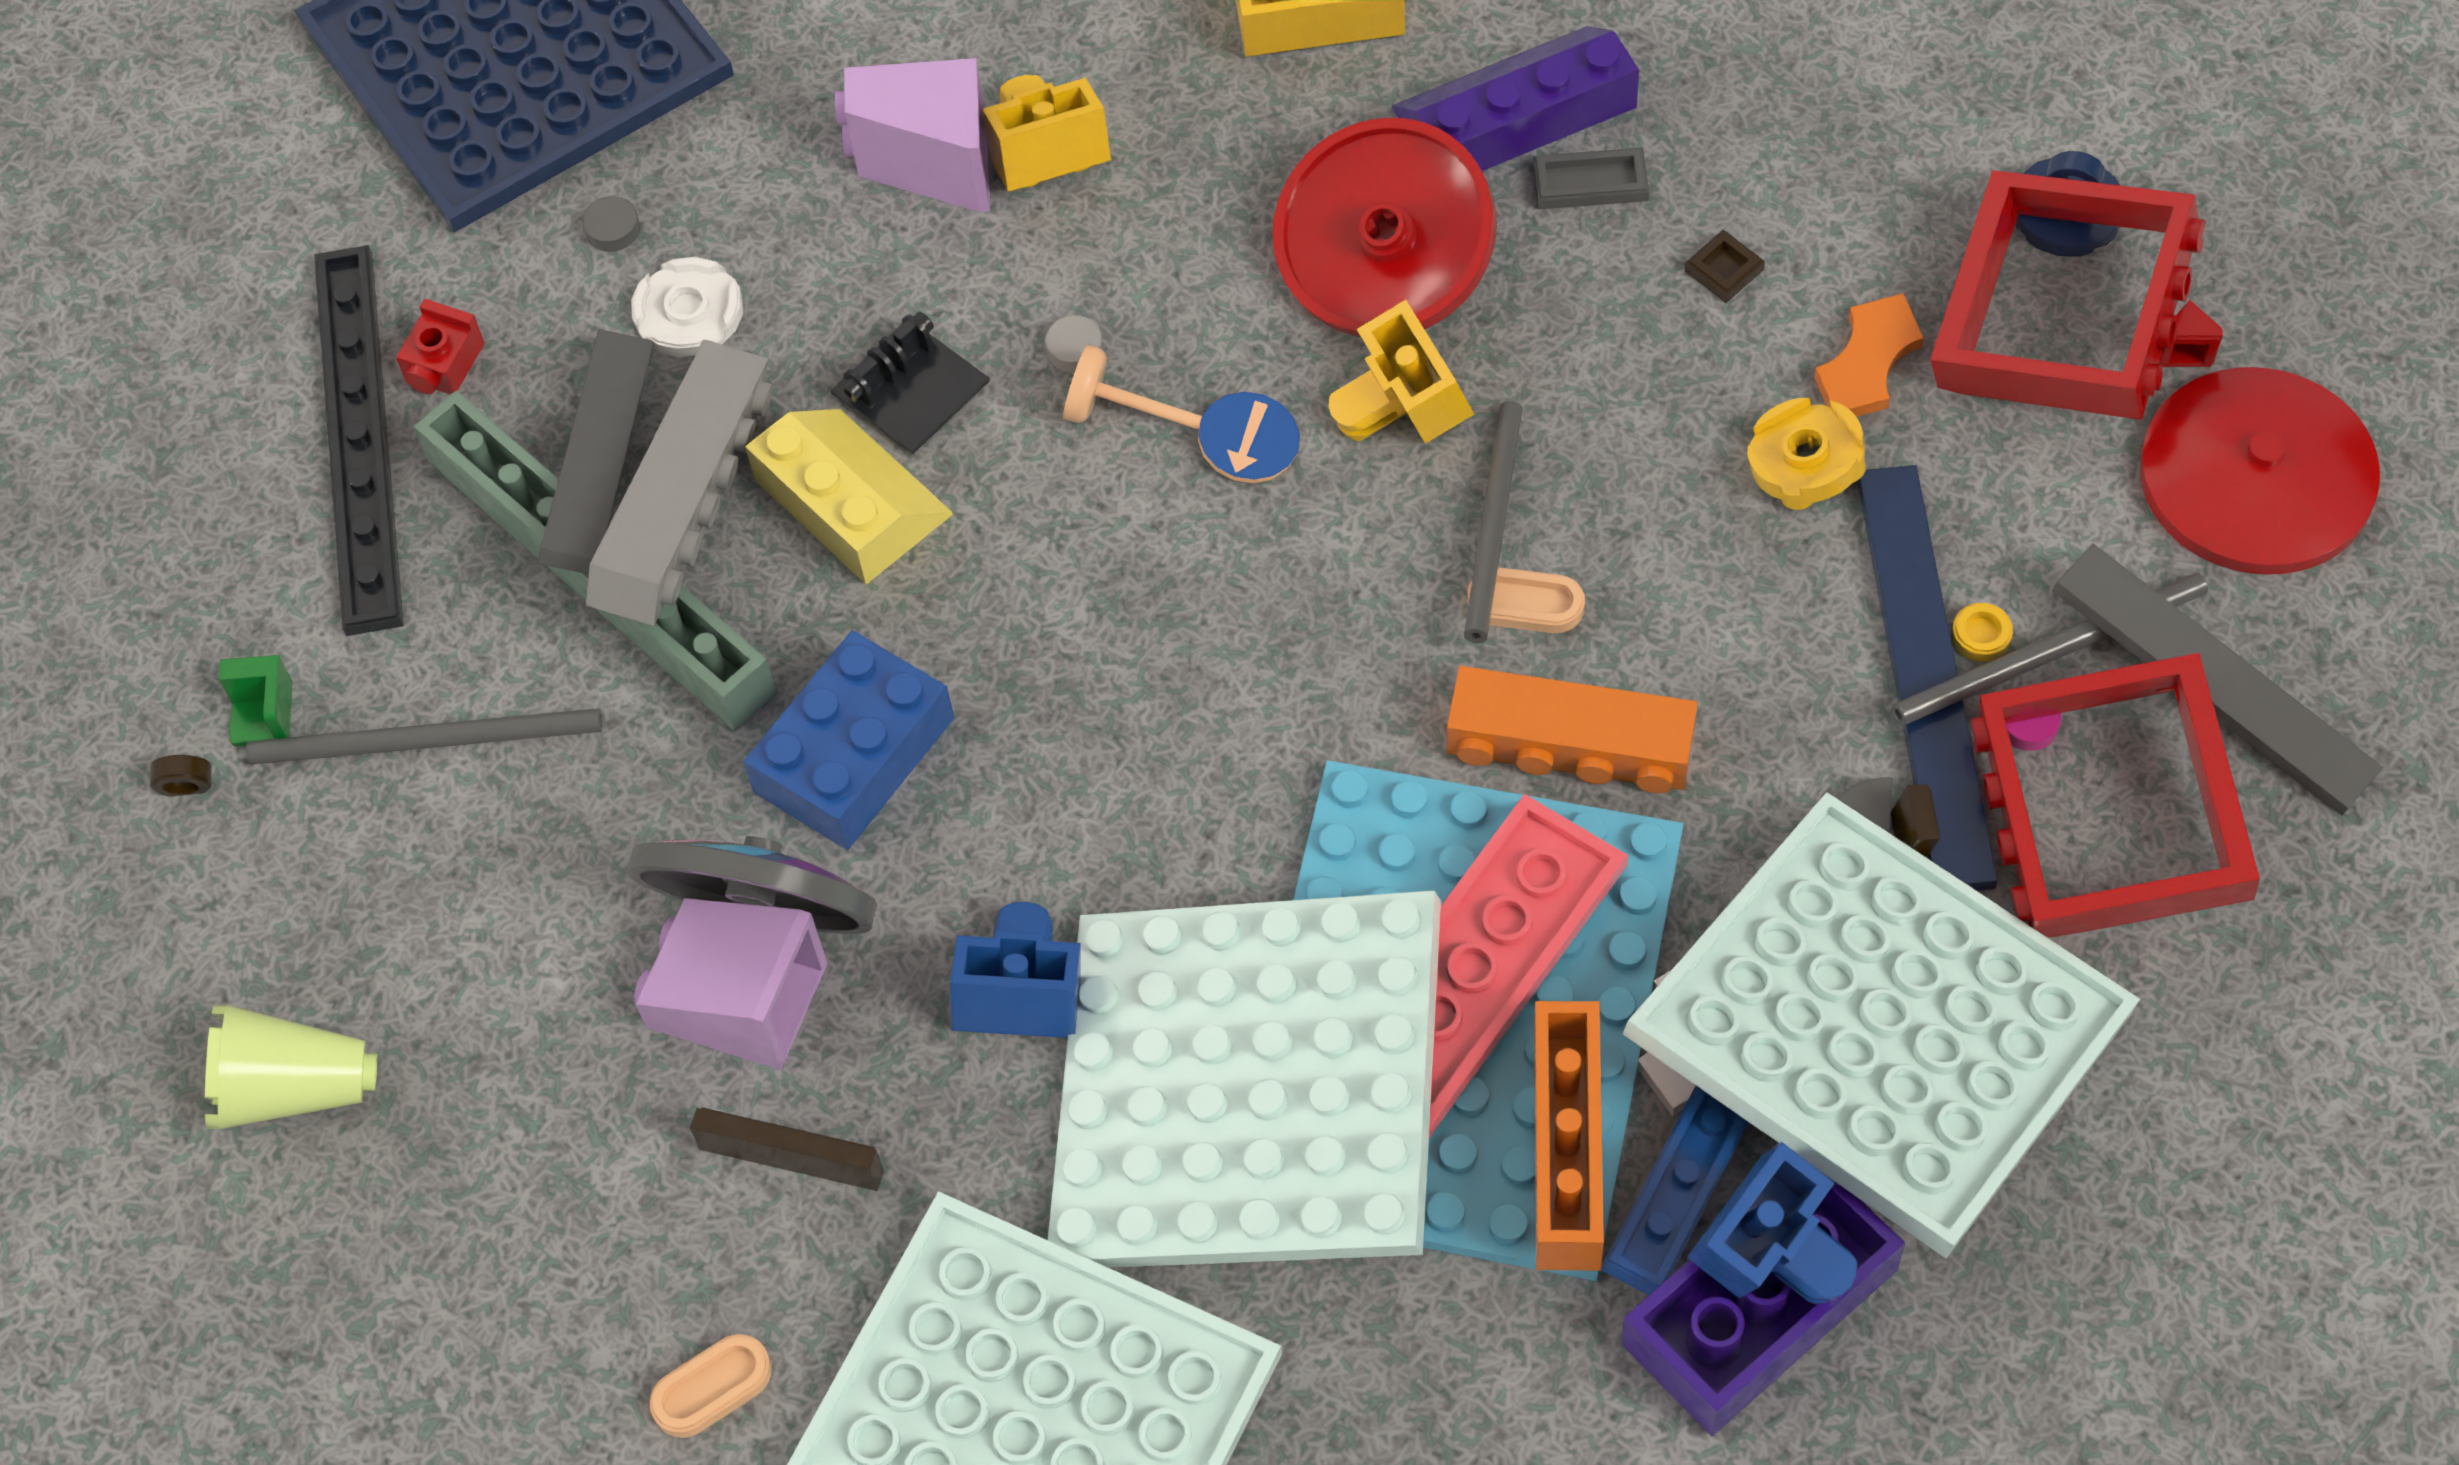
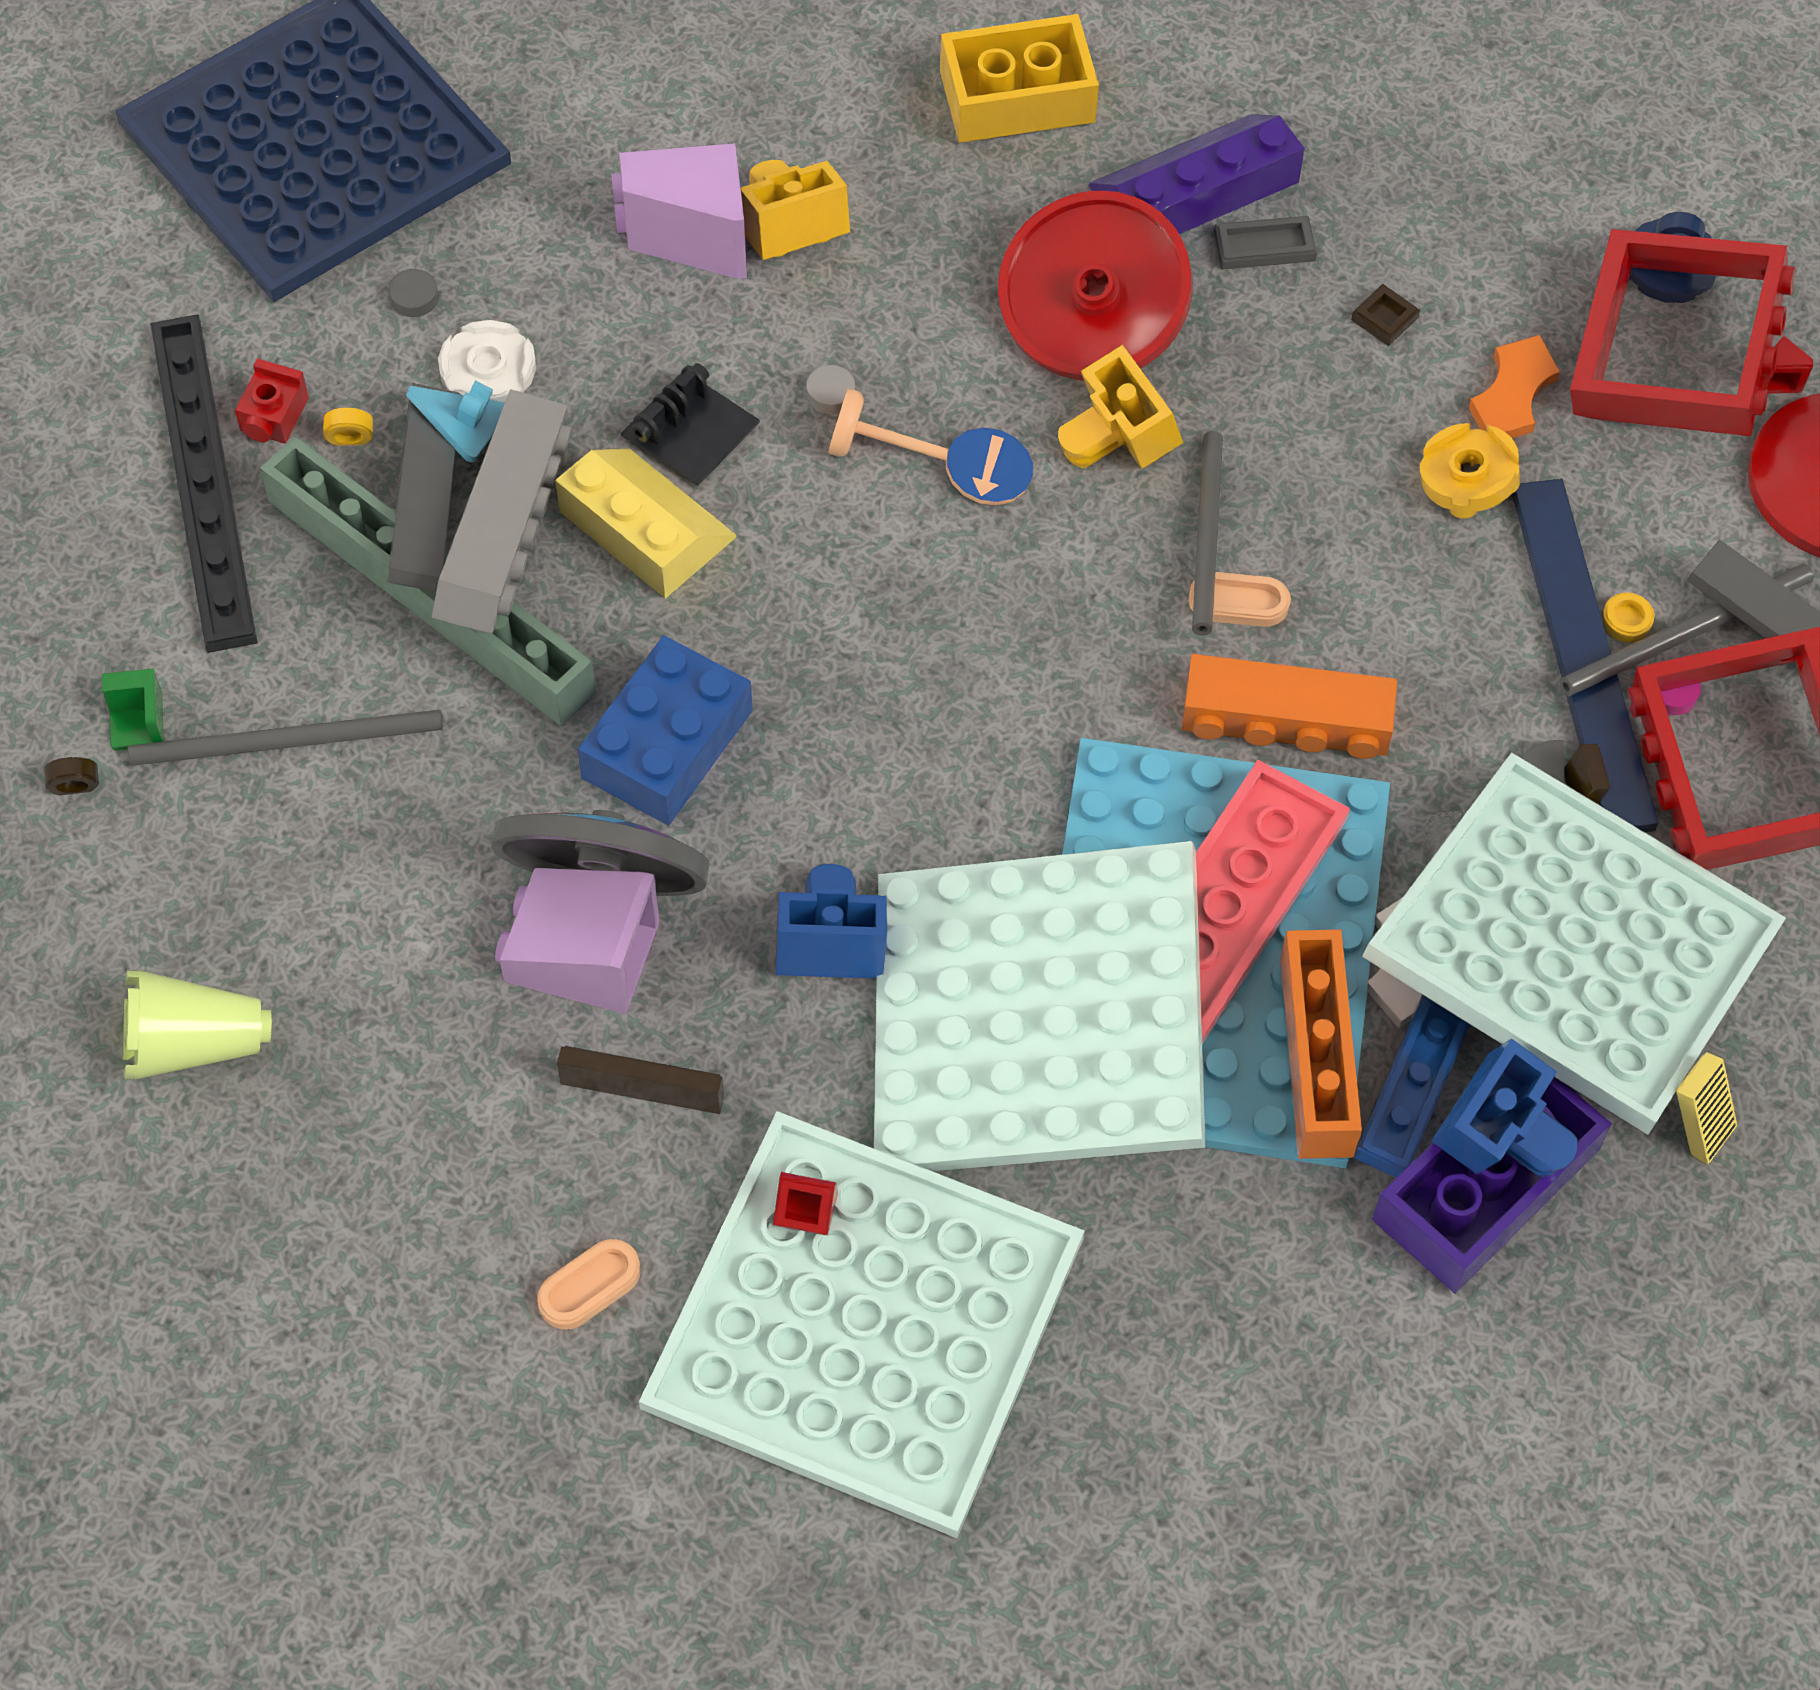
camera: 10 degrees left, 0 degrees up
(523, 378) = (348, 426): none -> yellow tile
(645, 370) = (461, 419): none -> medium azure piece
(959, 1302) = (805, 1203): none -> red slope
(2023, 1226) = (1706, 1107): none -> light yellow tile

